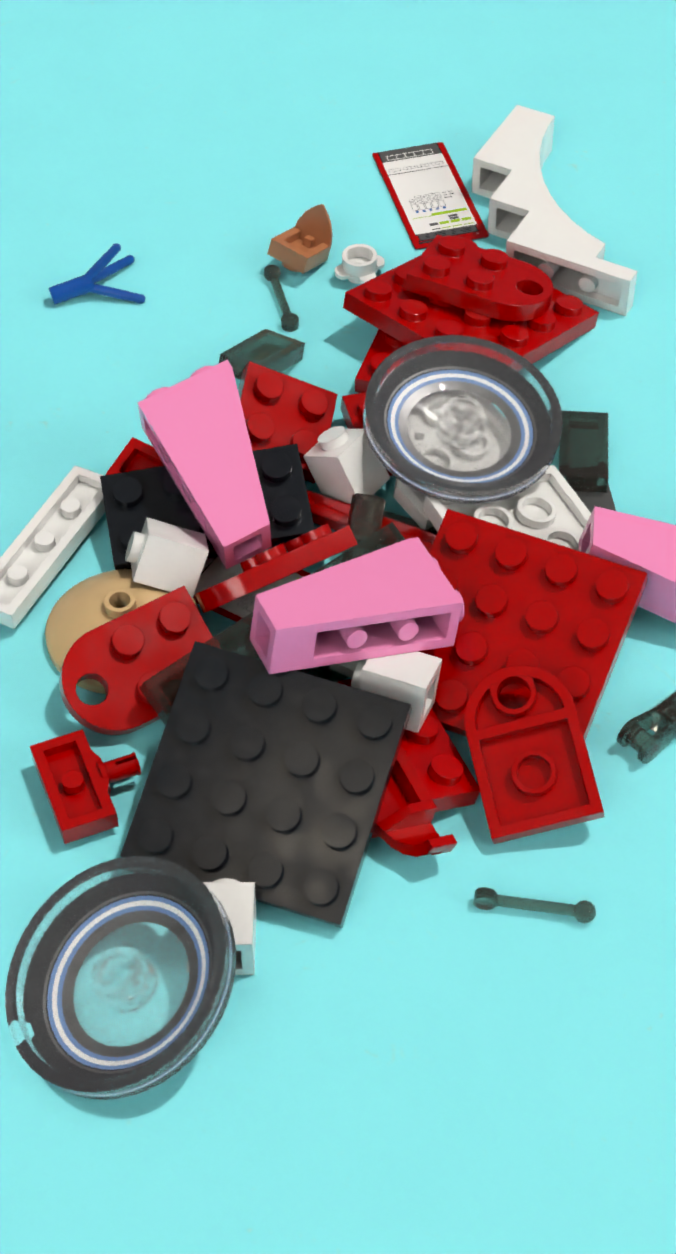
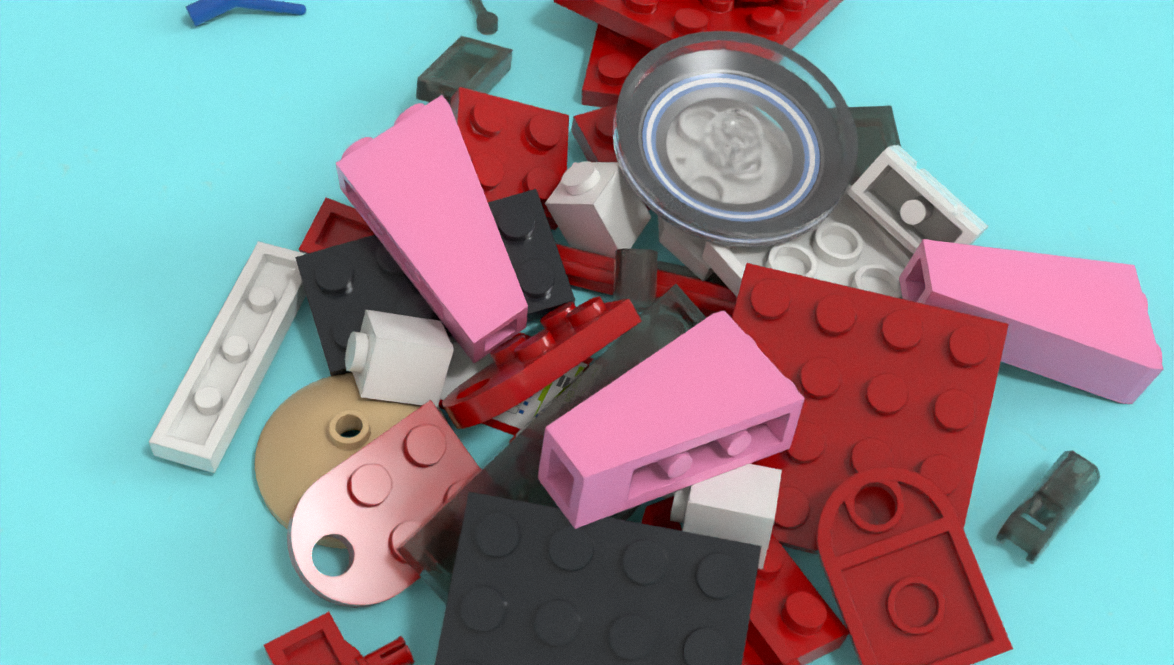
camera: 10 degrees left, 5 degrees up
(600, 481) = (913, 202): none -> white brick

